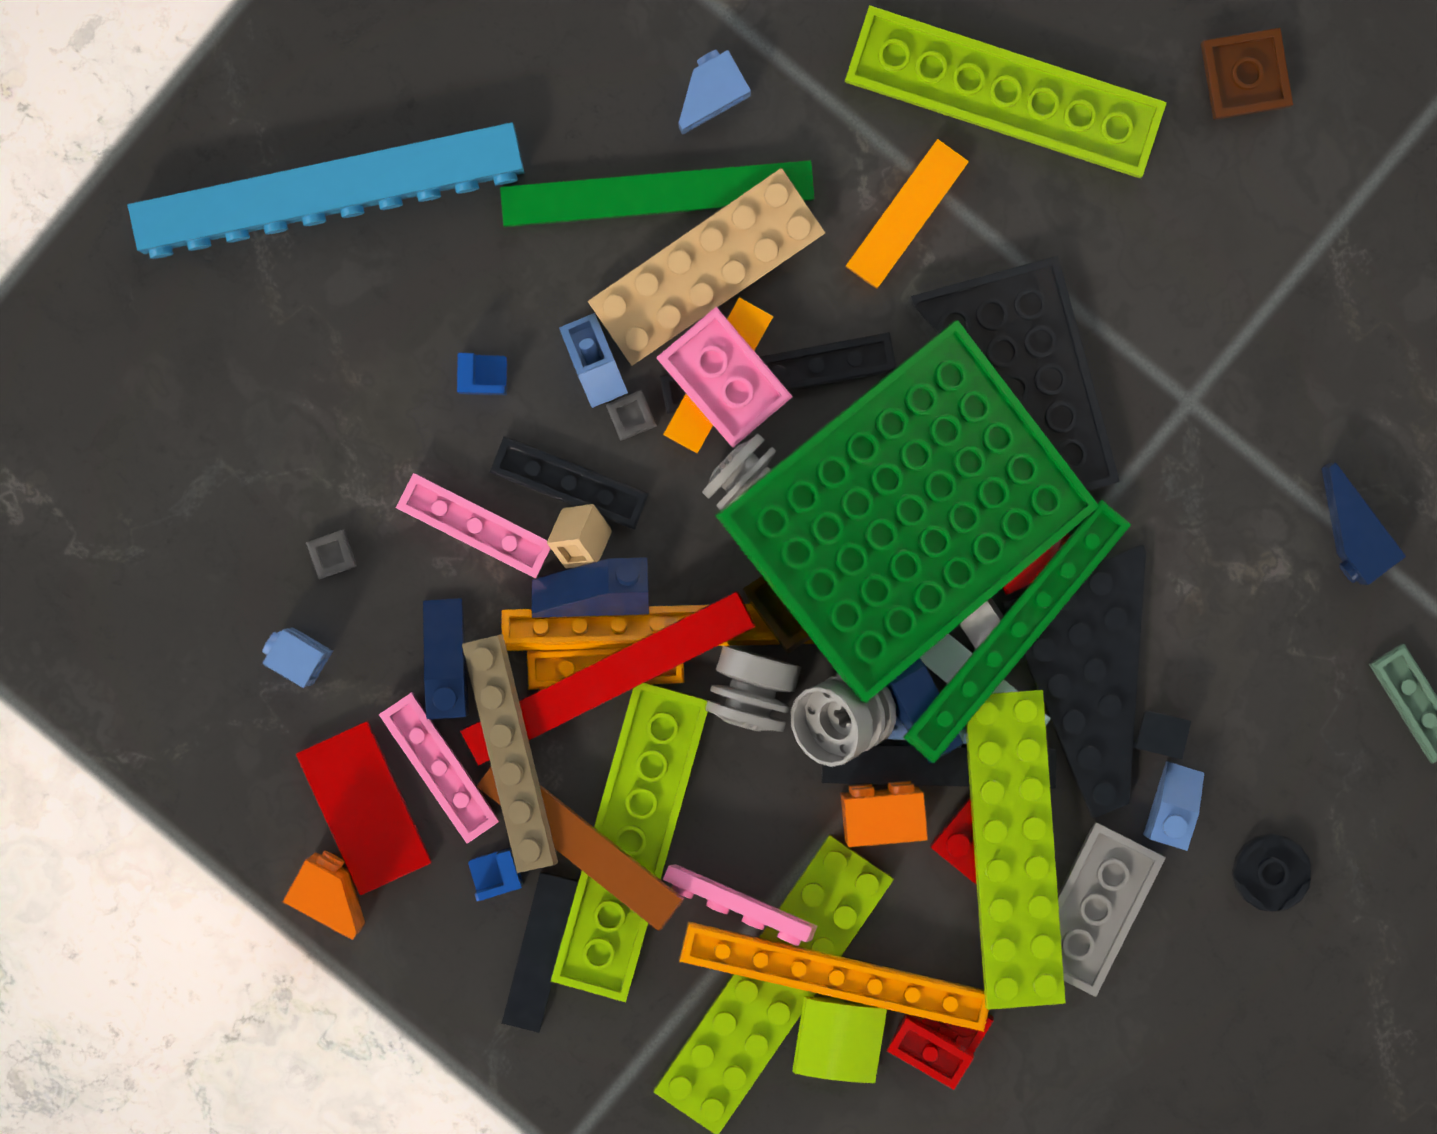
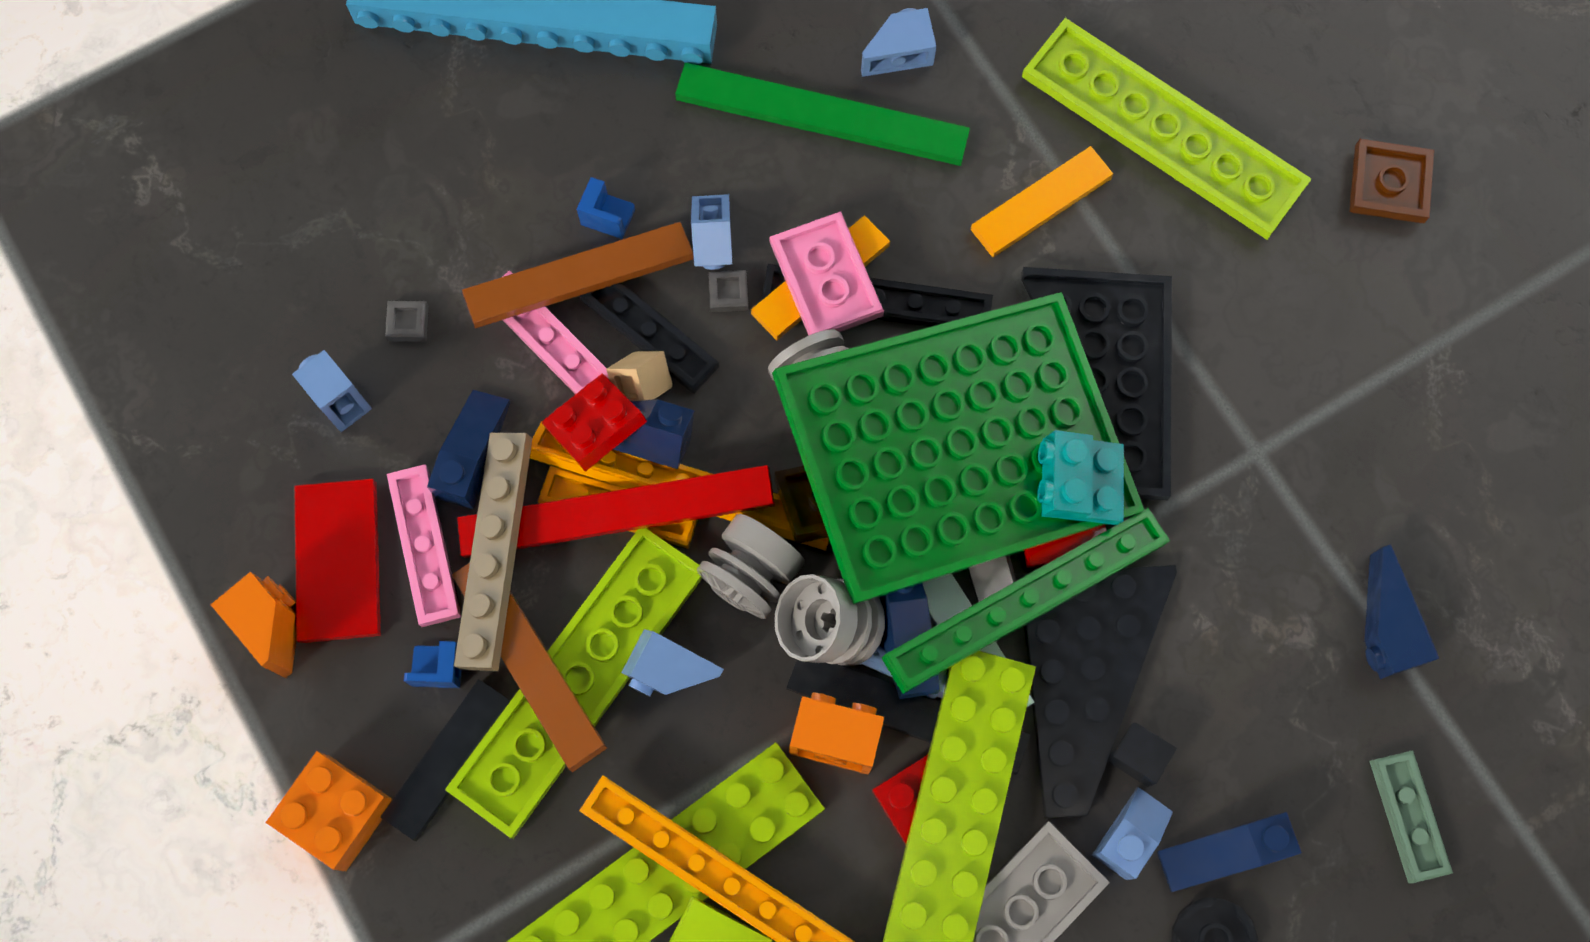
camera: 20 degrees right, 15 degrees down
(457, 1034) = (330, 812): none -> orange brick
(482, 455) = (577, 274): none -> dark orange tile
(557, 602) = (594, 421): none -> red plate
(706, 266) = (852, 178): tan plate -> none
(709, 805) = (666, 666): none -> medium blue slope
(754, 911) = (672, 788): bright pink plate -> none
(1032, 503) = (1081, 478): none -> teal plate
(1263, 793) = (1229, 852): none -> dark blue slope

